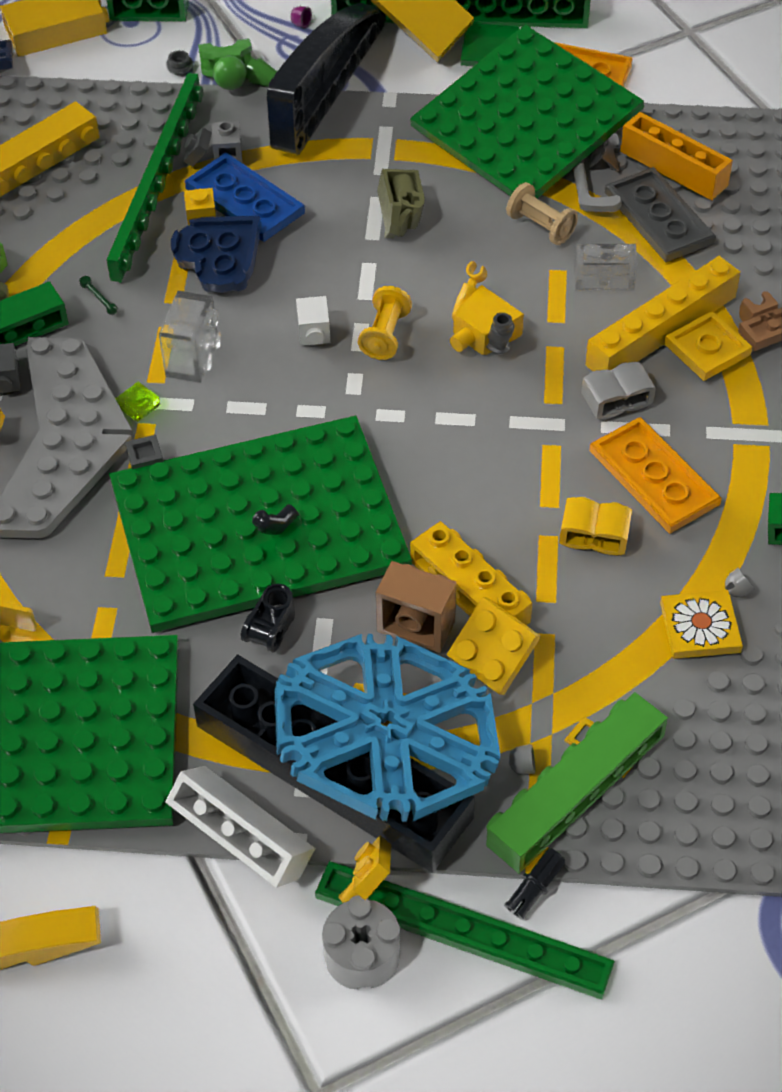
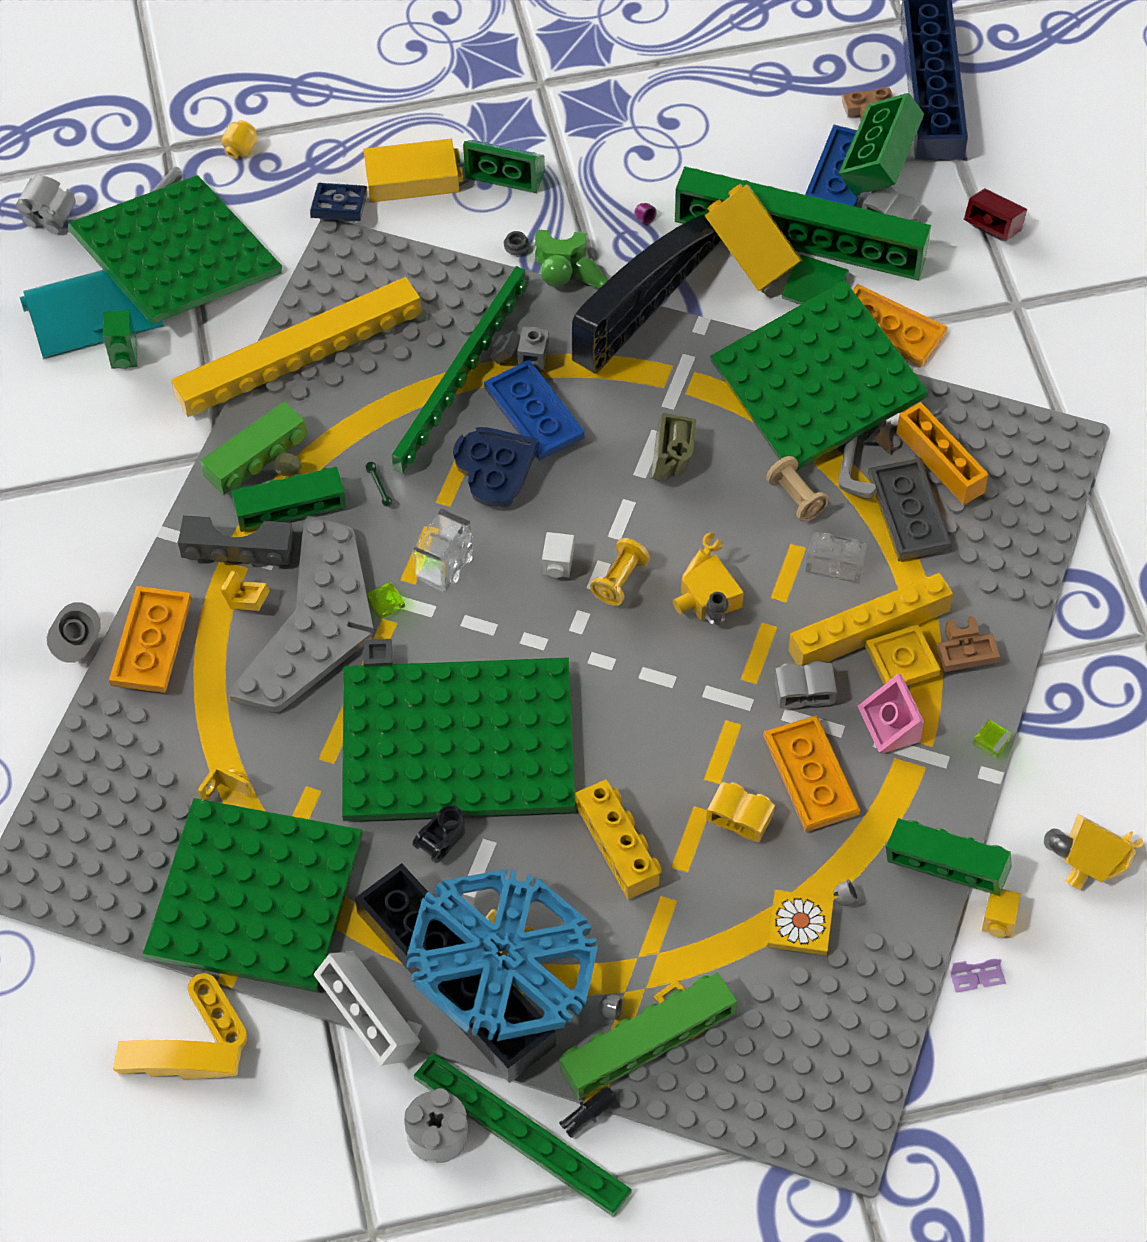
camera: 15 degrees right, 5 degrees up
(50, 866) = (215, 1002): none -> yellow plate
(199, 203) = (489, 414): yellow brick -> none
(274, 524) = (467, 749): black arm -> none
(371, 869) = (457, 1069): yellow plate -> none
(416, 606) = (561, 852): medium nougat brick -> none
(493, 645) = (616, 902): yellow plate -> none
(722, 399) = (892, 716): none -> bright pink slope

